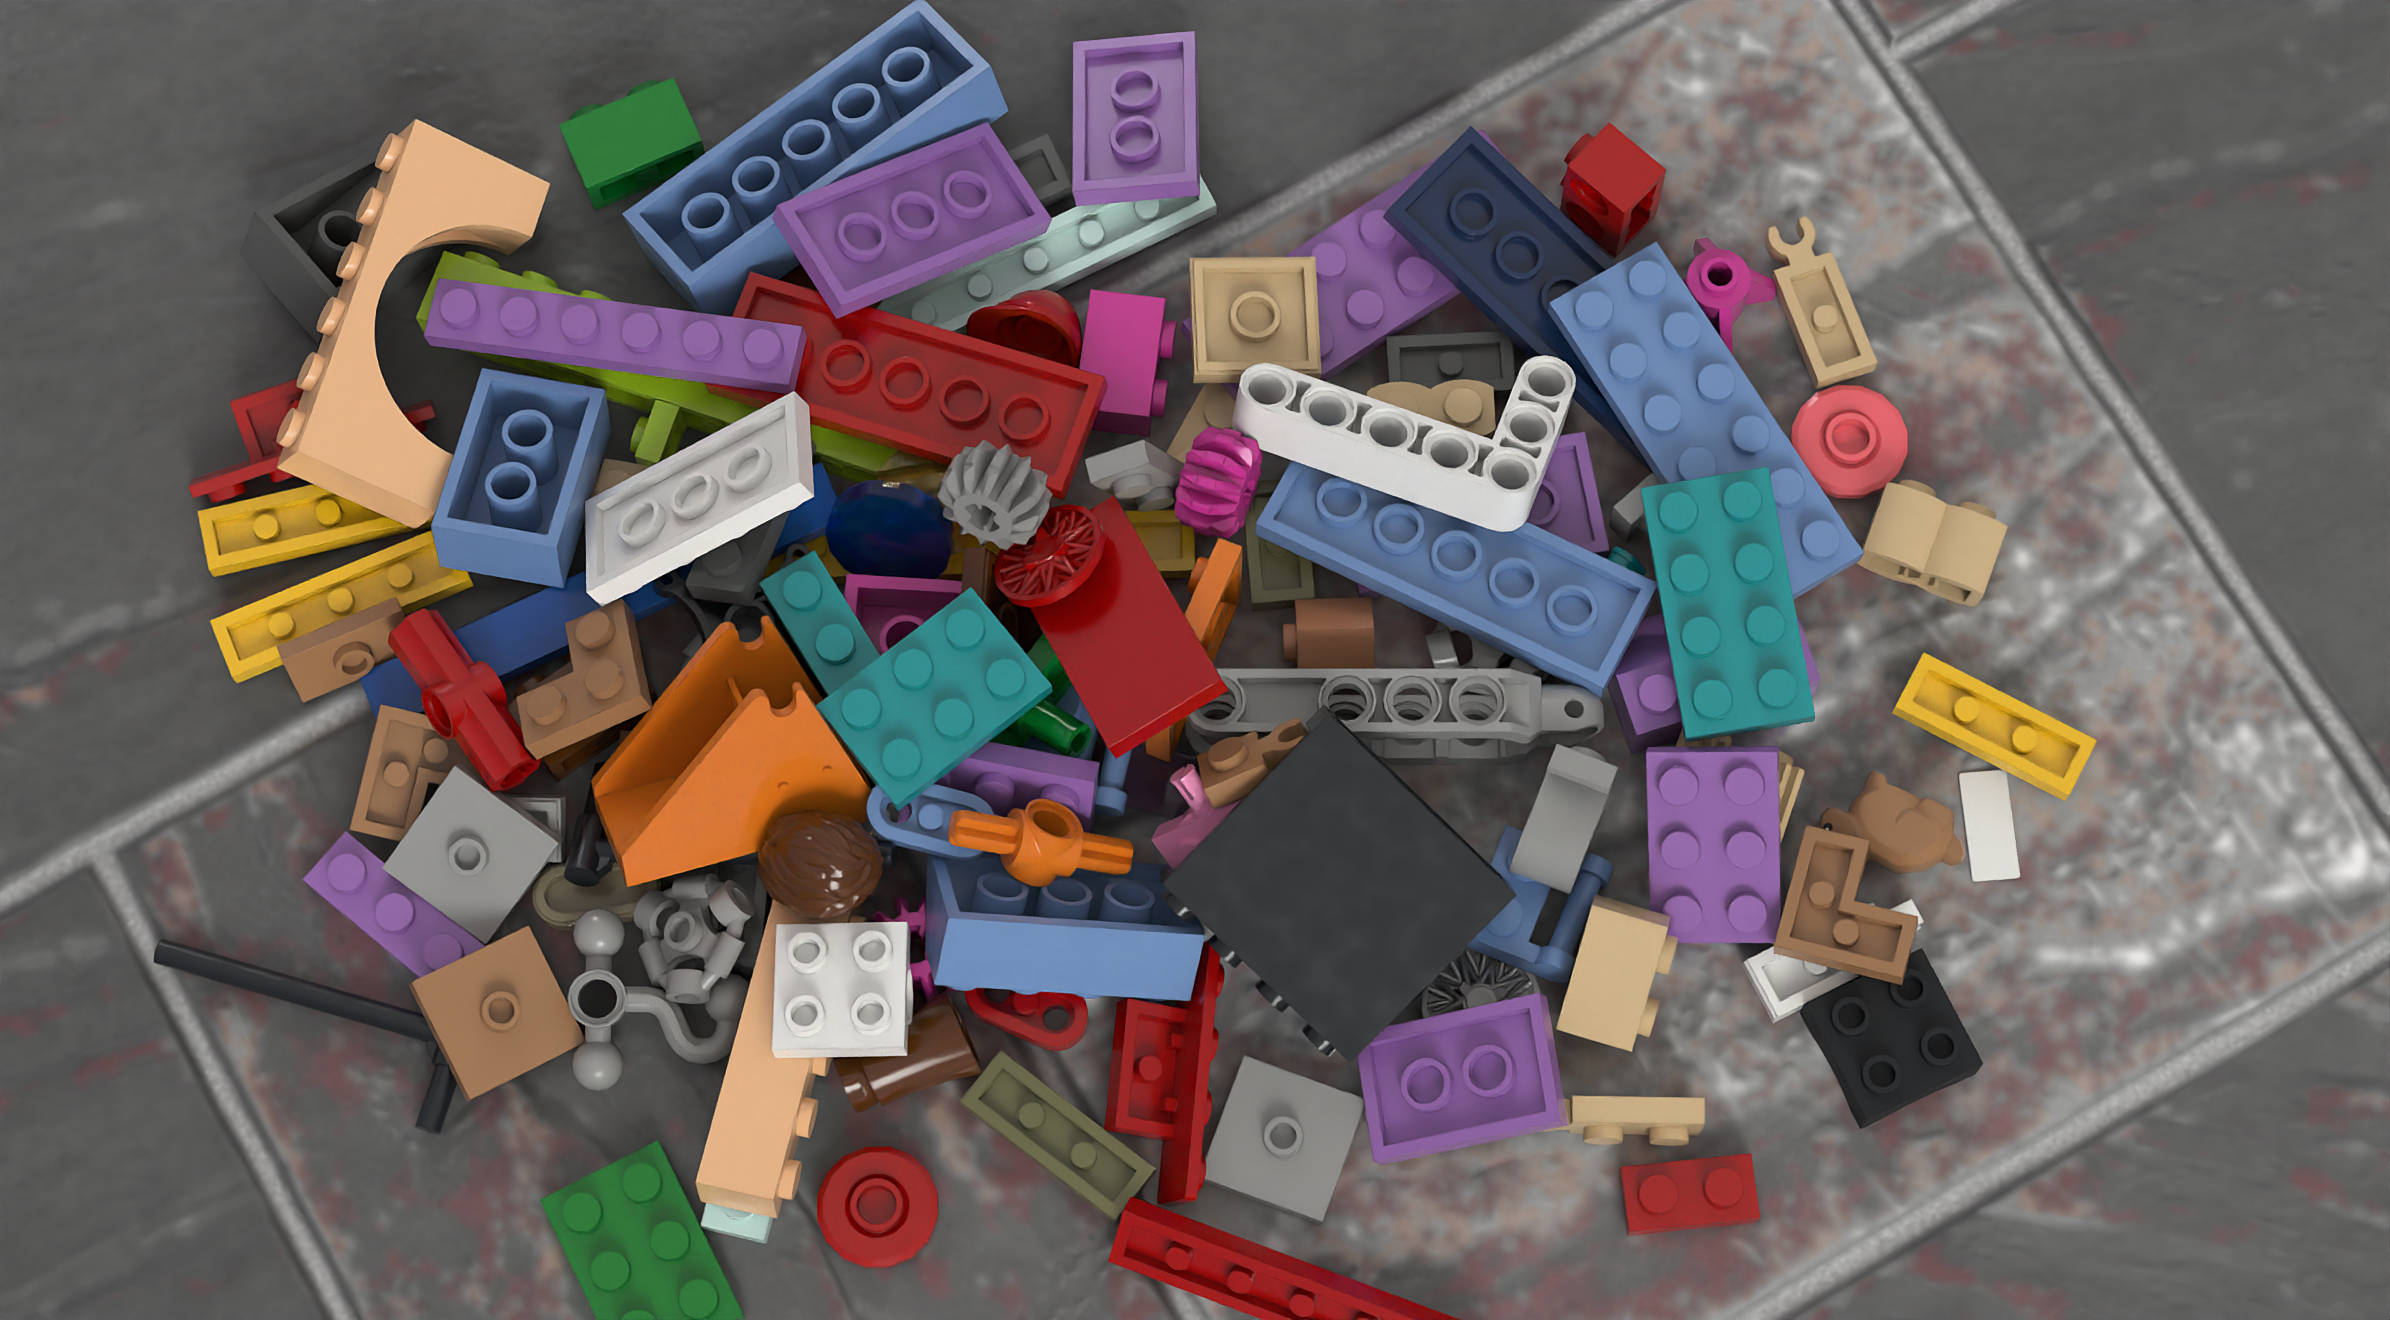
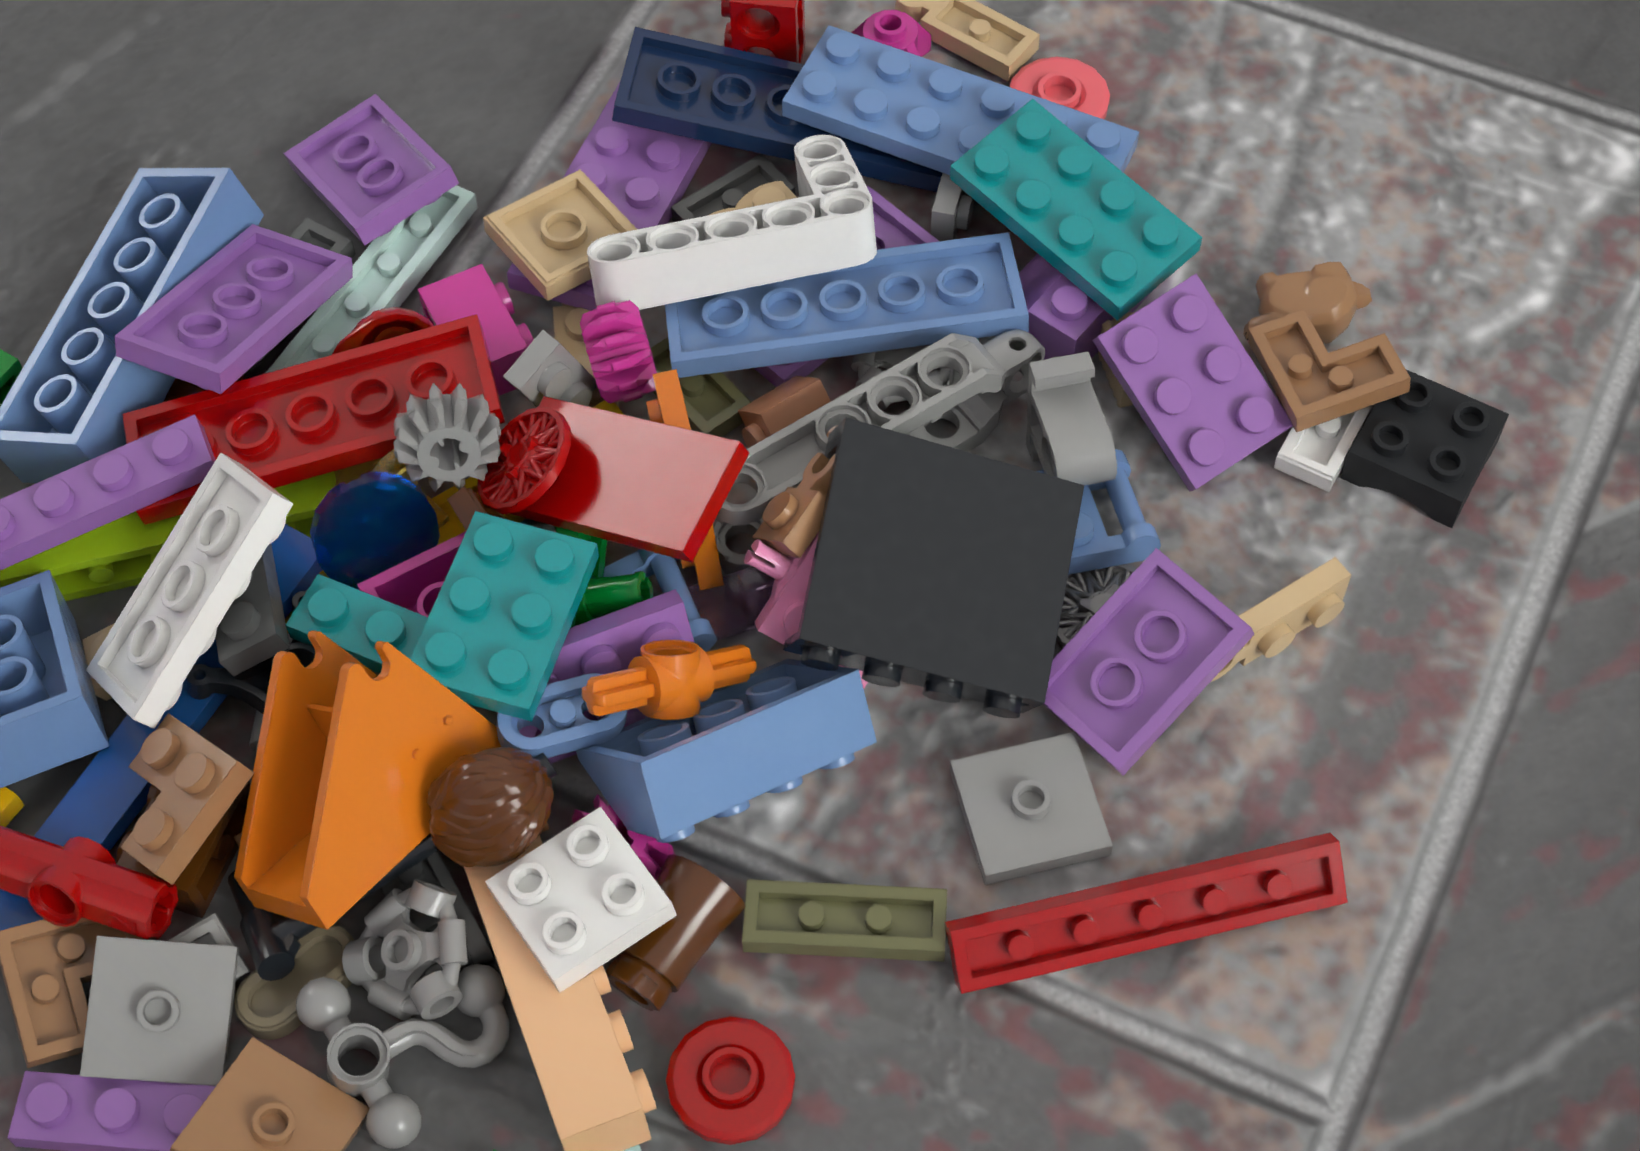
camera: 35 degrees left, 15 degrees down
(659, 434) = (117, 588): lime plate -> none
(1025, 1015) = (742, 837): red plate -> none
(1163, 1078) = (904, 817): red bracket -> none
(1615, 973) = (1194, 510): tan brick -> none
(1689, 1194) = (1372, 648): red plate -> none
(1933, 542) = (1175, 120): tan brick -> none
(1989, 825) = (1385, 292): white sticker -> none
(1994, 726) = (1314, 207): yellow plate -> none

